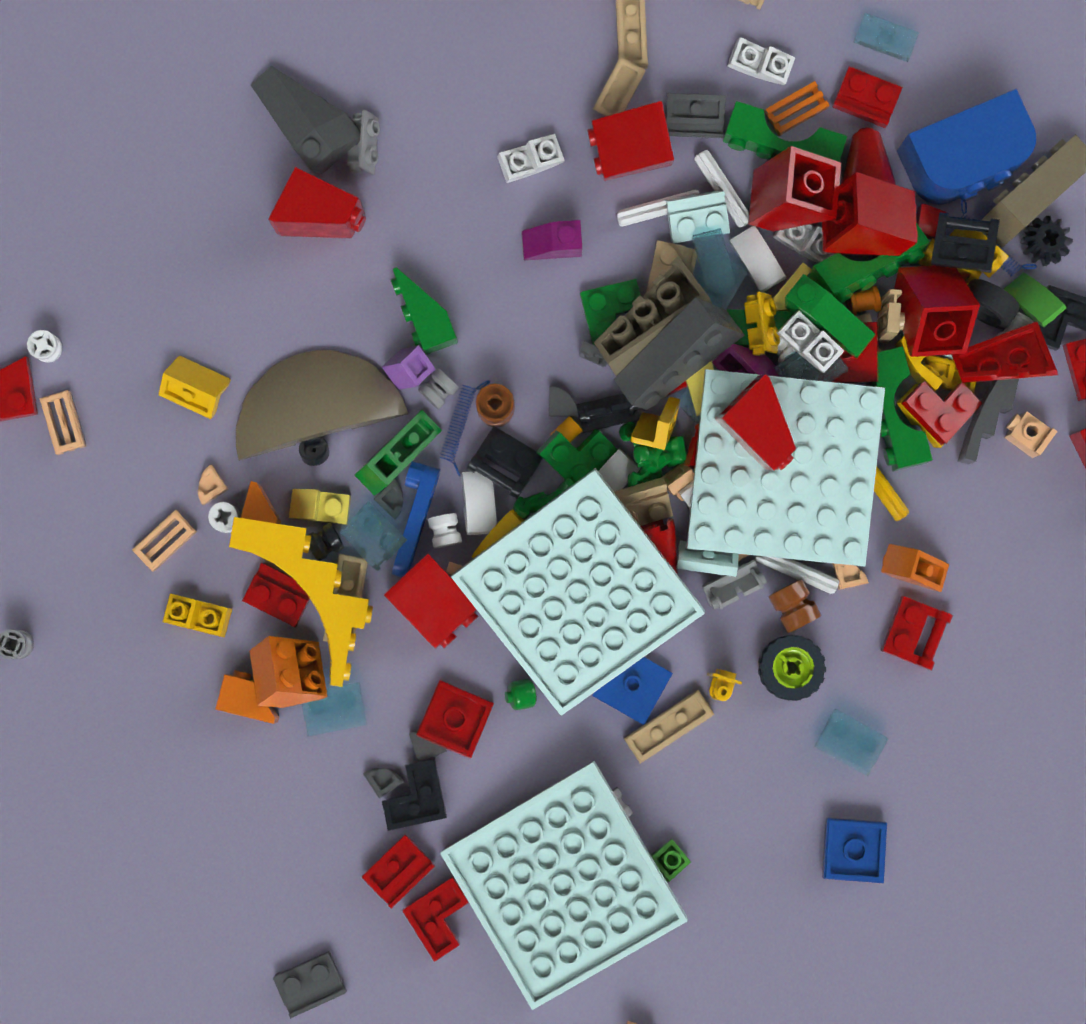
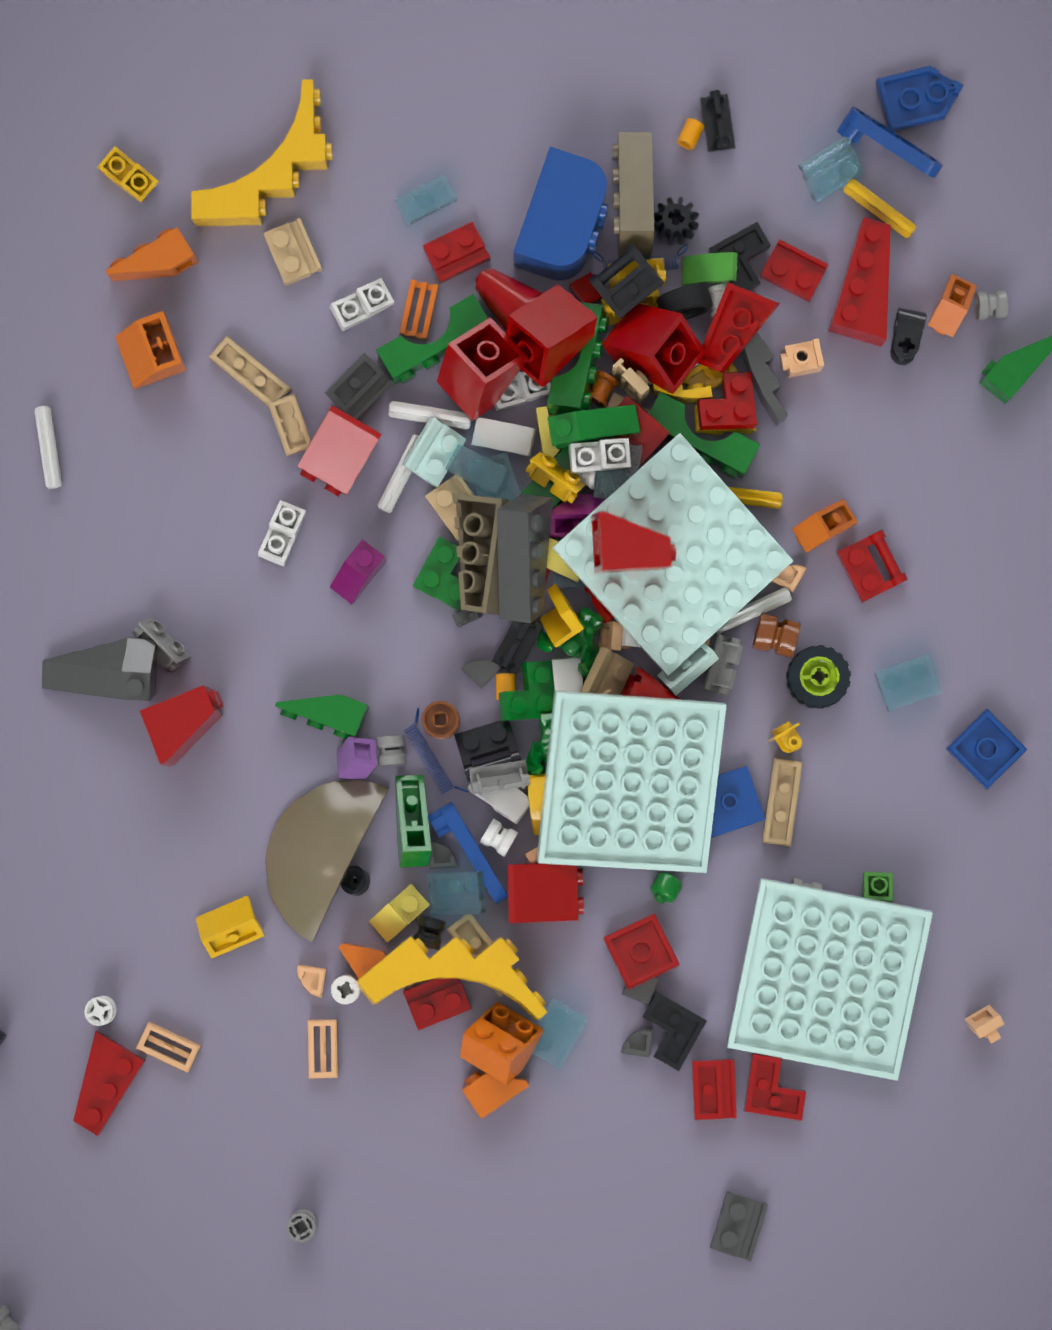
camera: 45 degrees left, 0 degrees up
(197, 615) = (399, 1072): yellow slope -> none
(491, 488) = (499, 777): none -> light grey hinge

